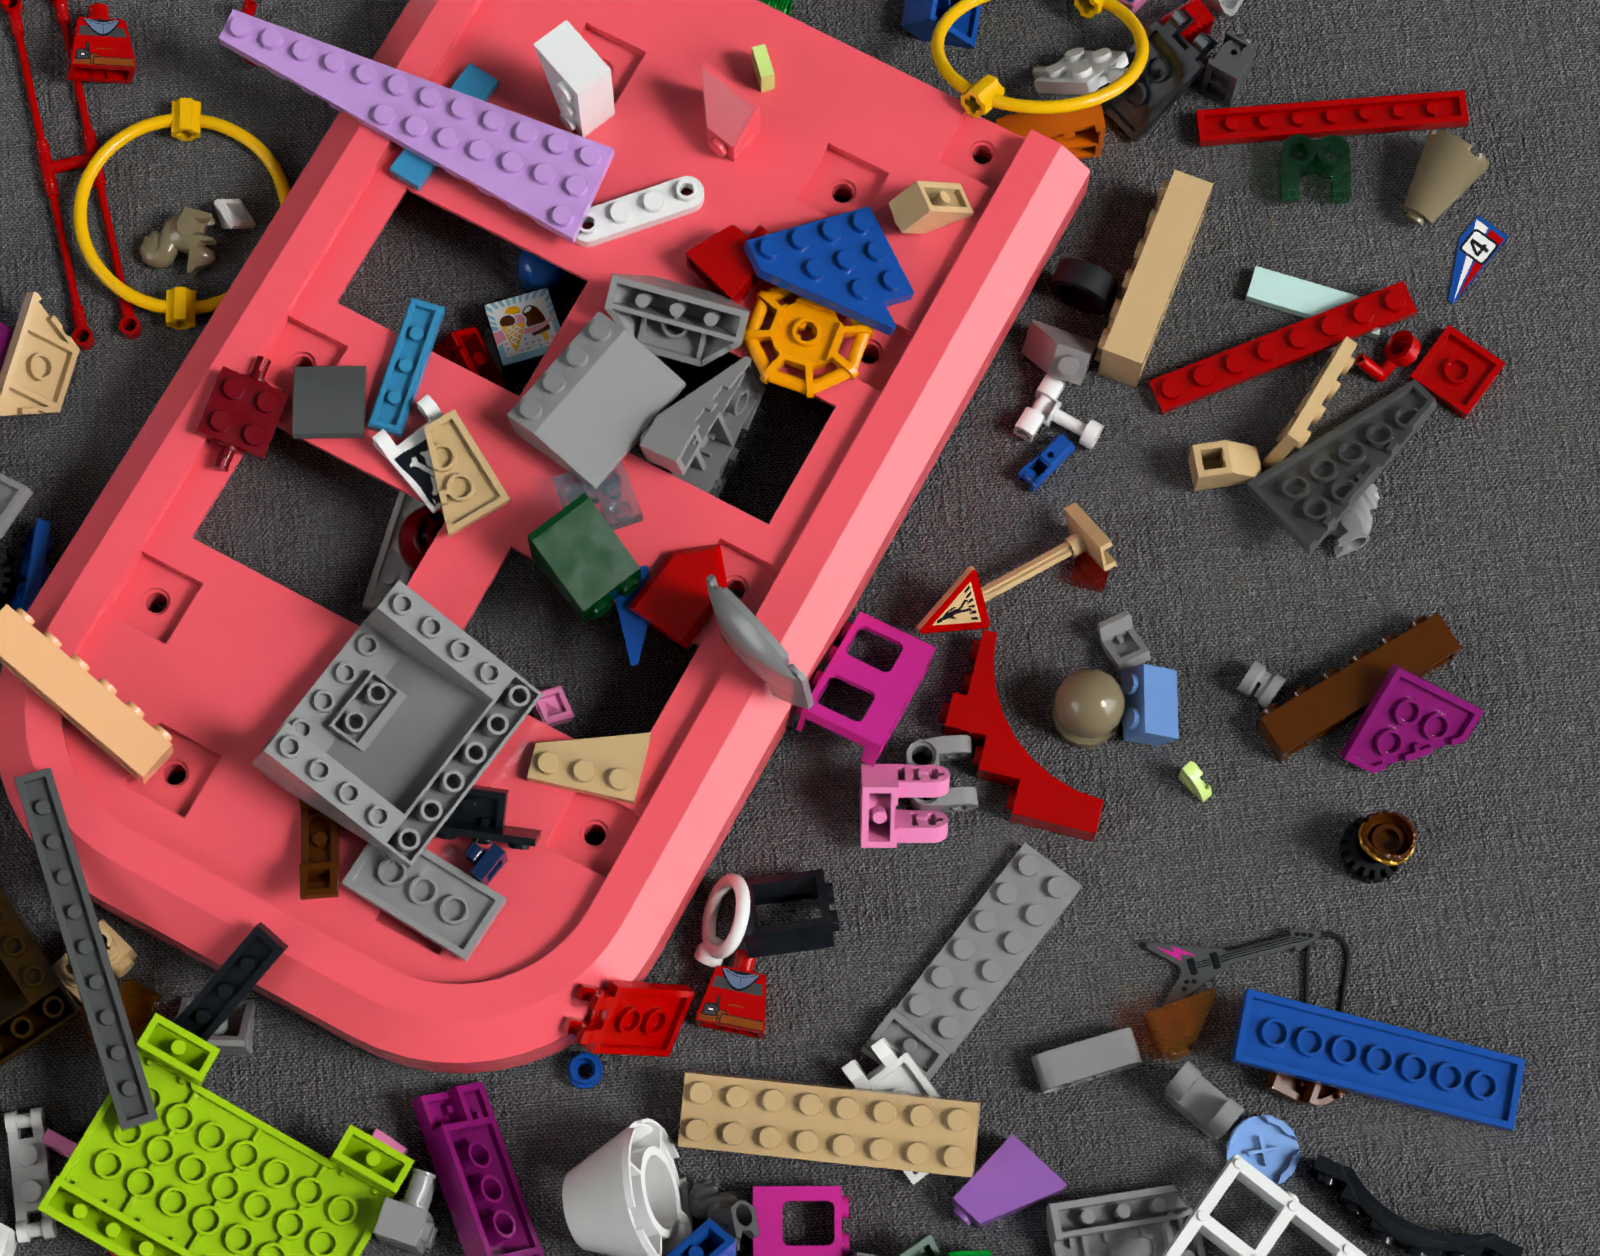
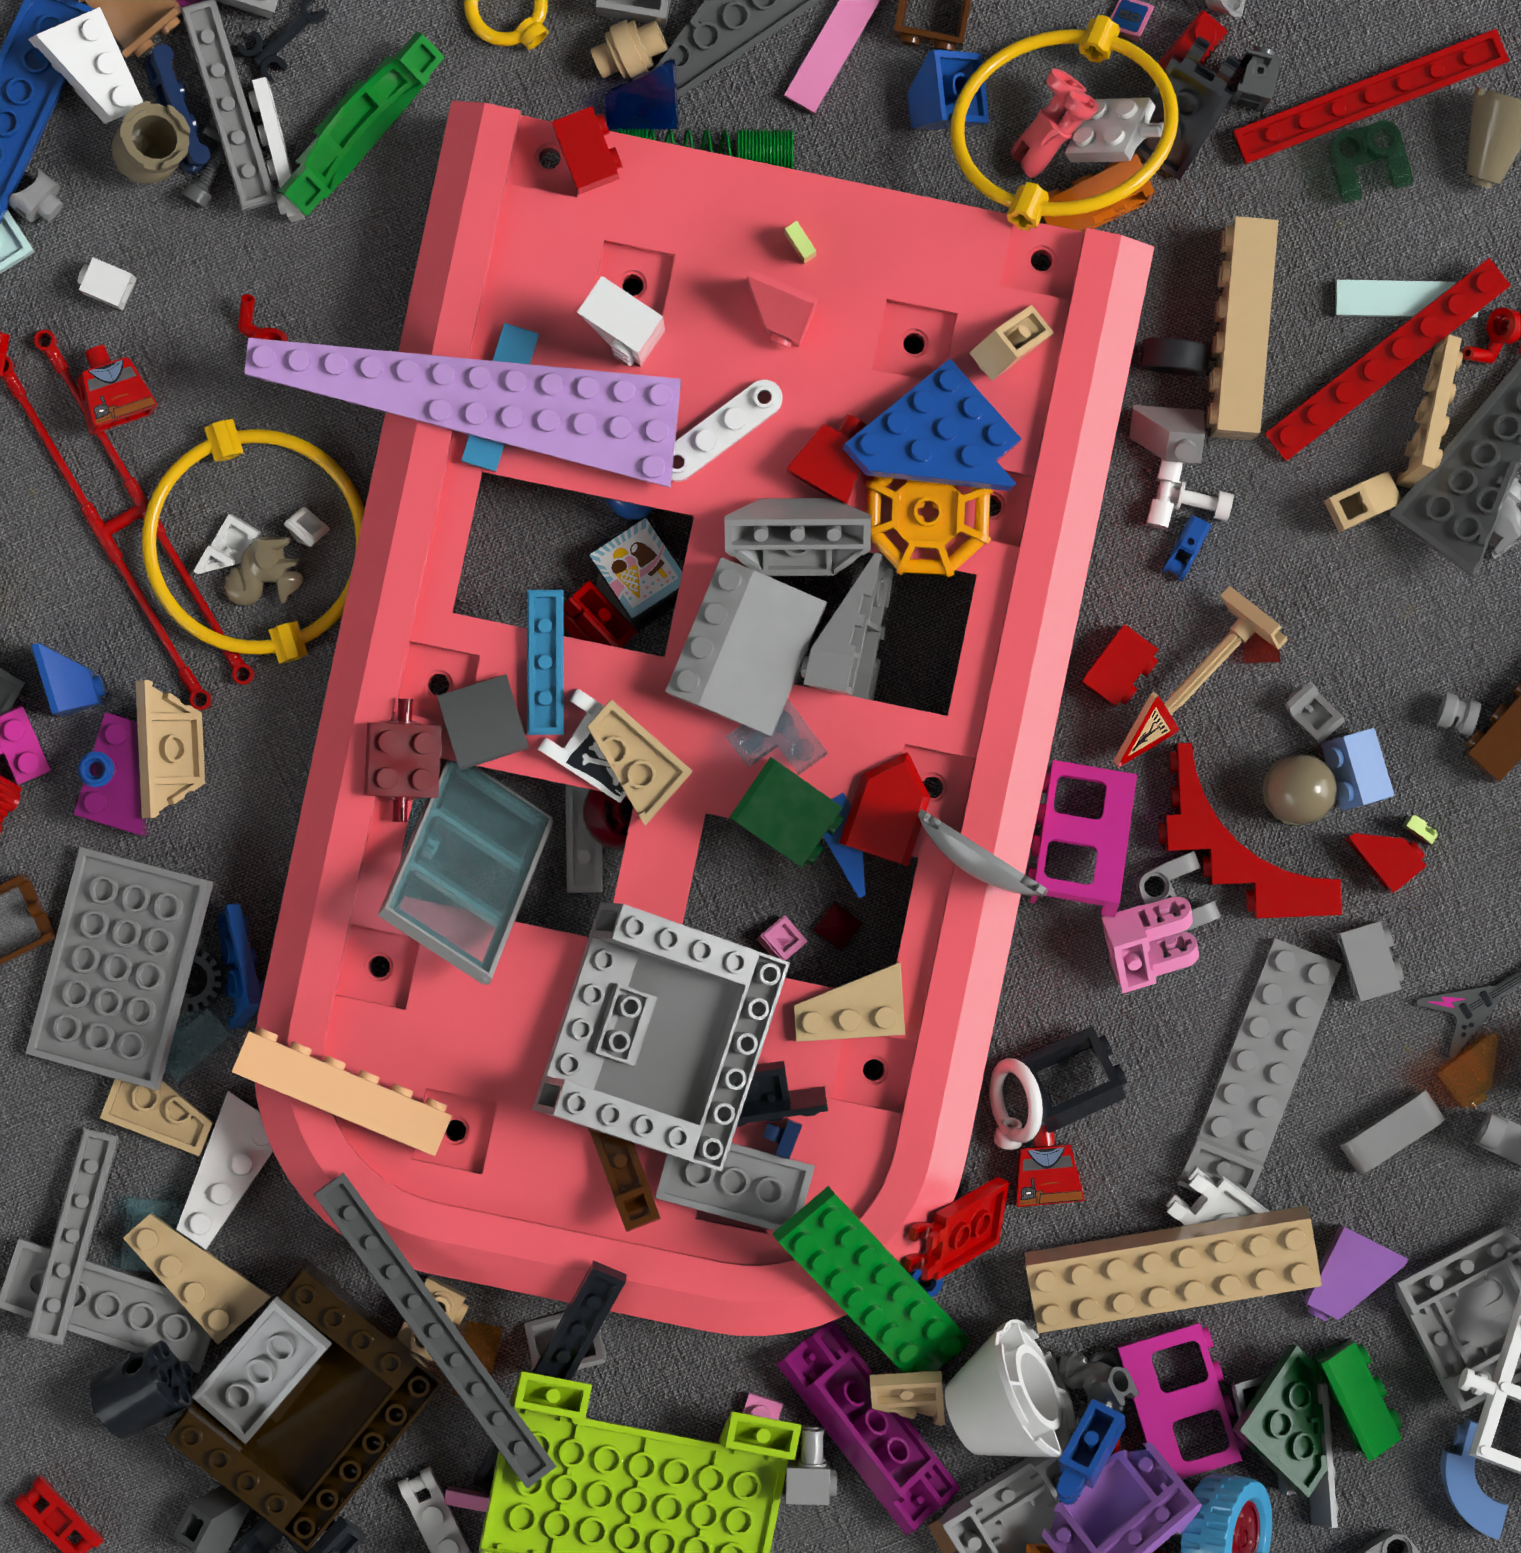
camera: 20 degrees left, 15 degrees up
(154, 212) = (228, 545): none -> white slope
(268, 531) = (467, 869): none -> clear light blue door
(524, 1035) = (870, 1284): none -> green plate
(532, 1171) = (909, 1394): none -> tan wing
(608, 712) = (838, 926): none -> dark red slope
(950, 549) = (1120, 666): none -> red brick
(1032, 56) = (1048, 131): none -> coral piece
(1110, 889) = (1369, 960): none -> light grey brick
(1156, 797) = (1388, 858): none -> red slope

